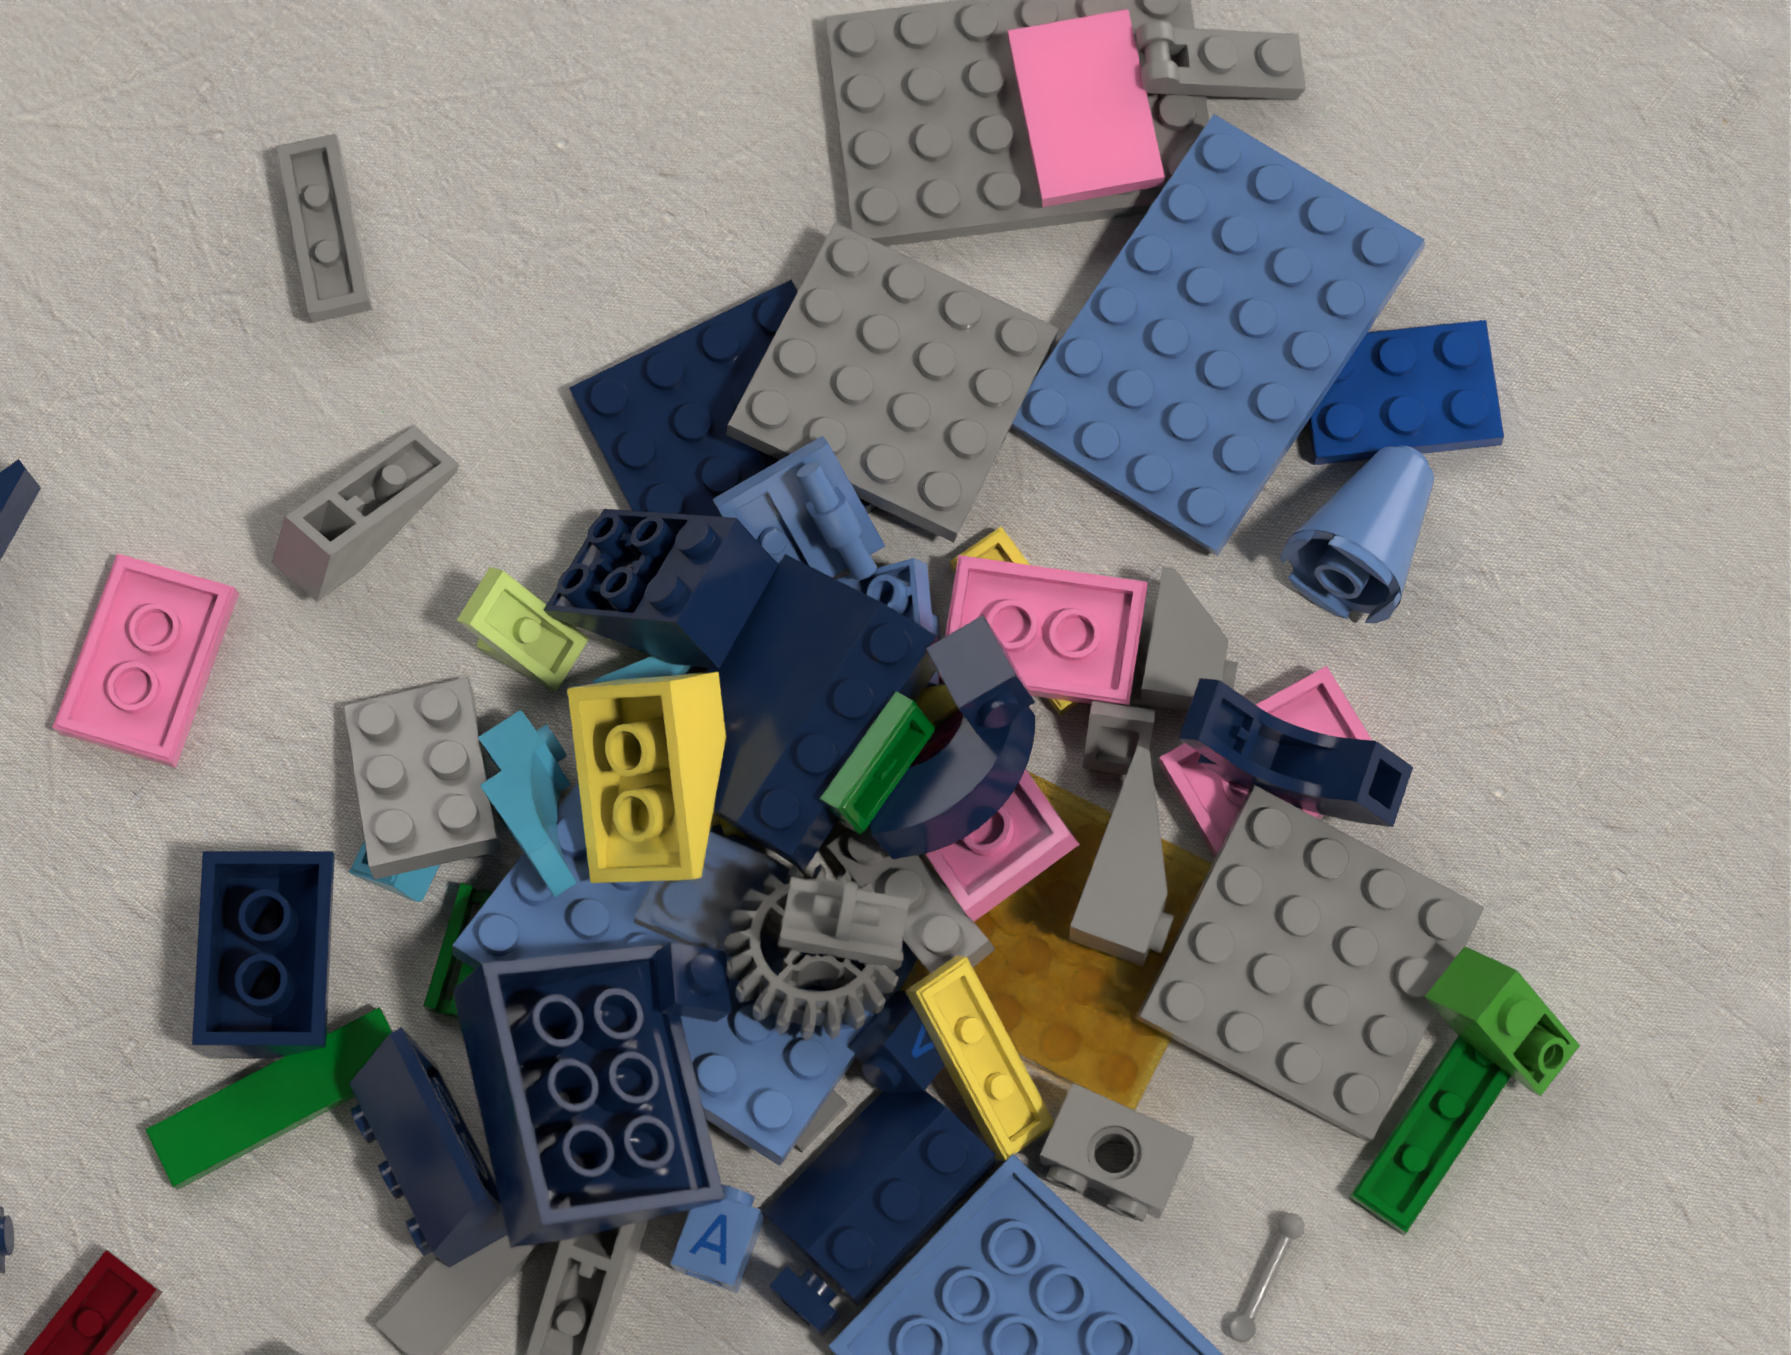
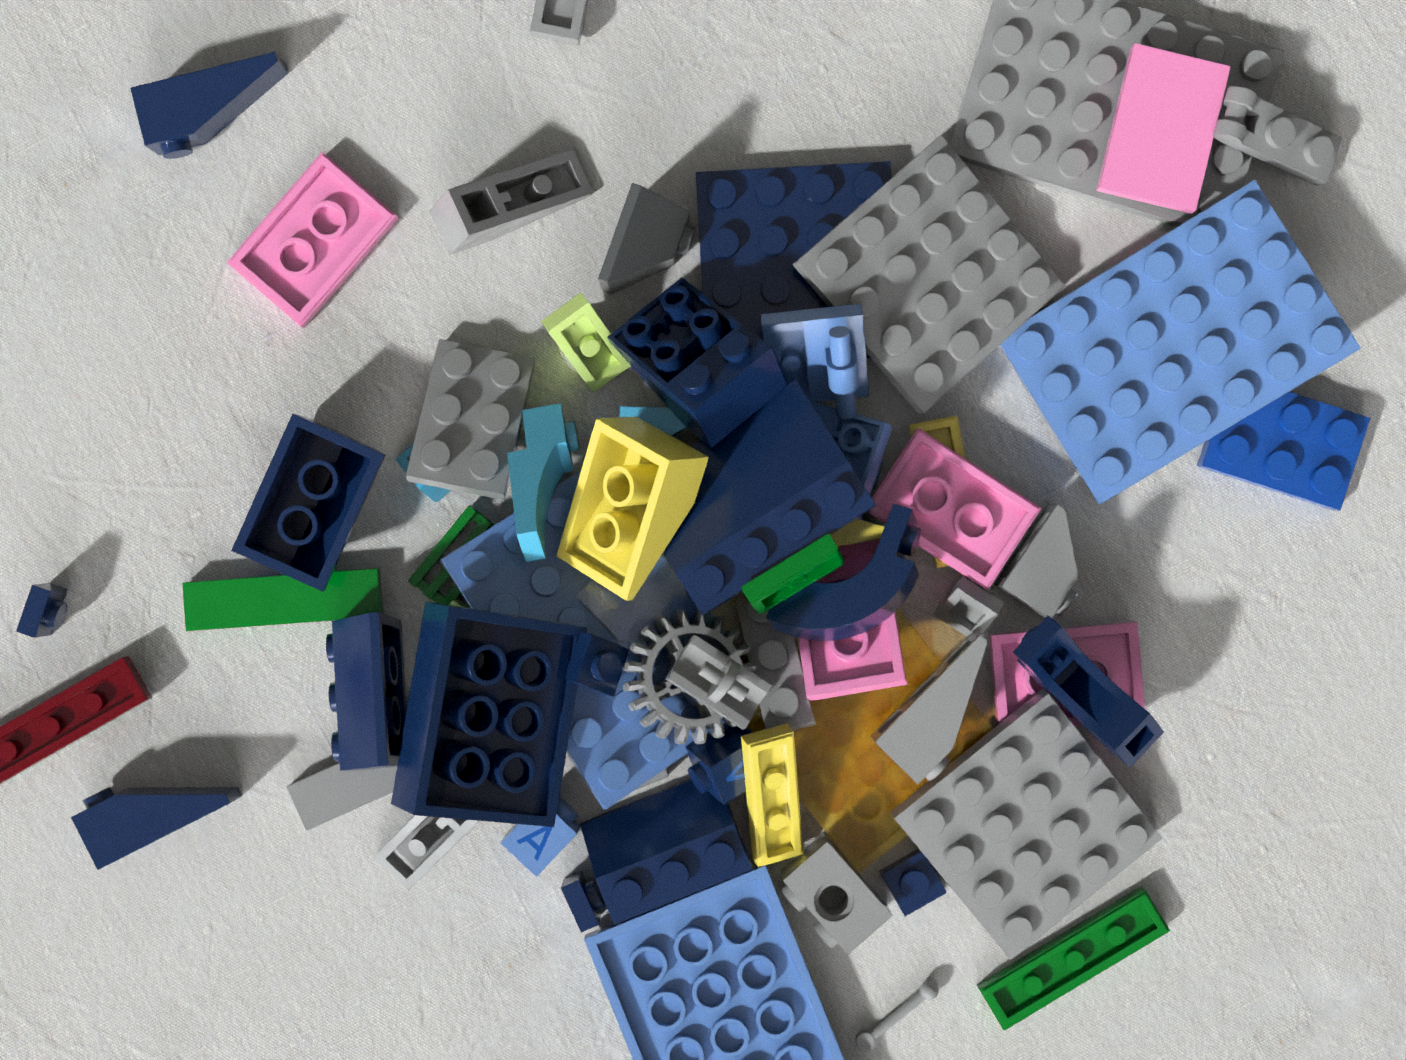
camera: 20 degrees right, 15 degrees up
(542, 483) = (645, 239): none -> dark grey slope
(980, 676) = (894, 547): dark blue brick -> none
(1207, 1100) = (912, 882): none -> dark blue plate
(1364, 537) = (1210, 542): medium blue cone -> none
(1503, 1019) = (1139, 926): bright green slope -> none

